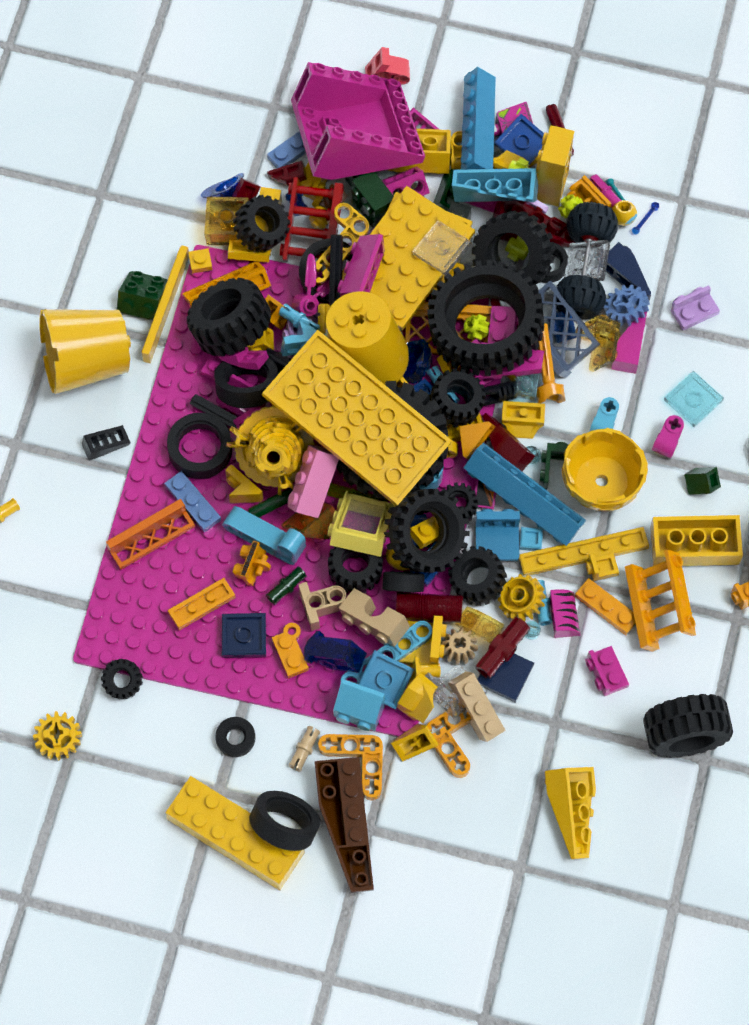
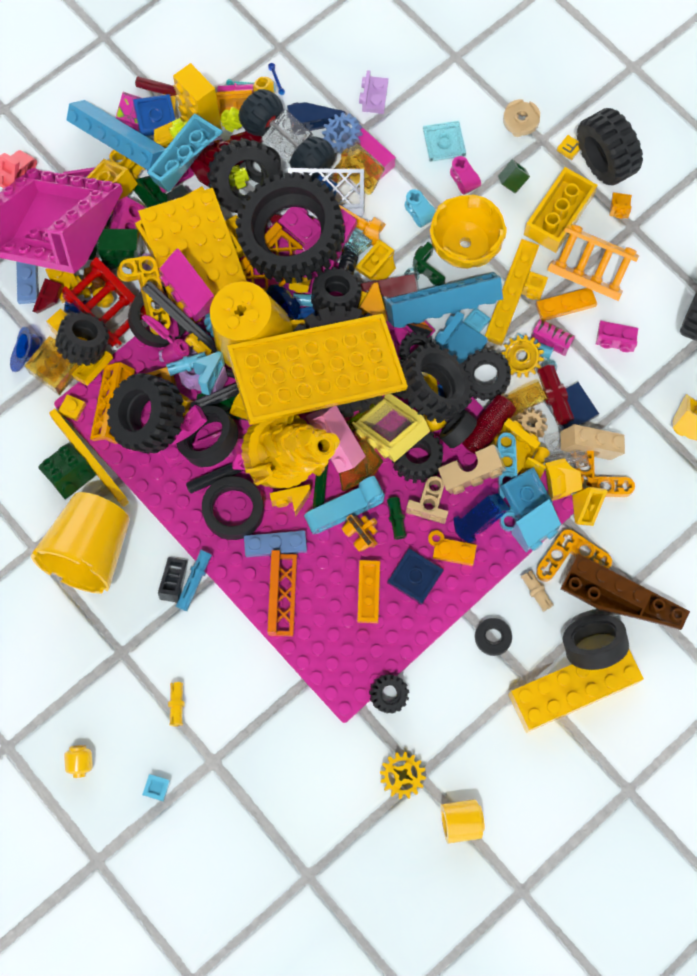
camera: 55 degrees left, 5 degrees up
(48, 807) = (462, 821): none -> yellow piece
(111, 458) = (193, 581): none -> dark azure pin
(246, 189) = (40, 333): dark red tile -> none
(442, 247) = (212, 218): clear tile -> none
(476, 327) = (286, 243): neon yellow gear -> none

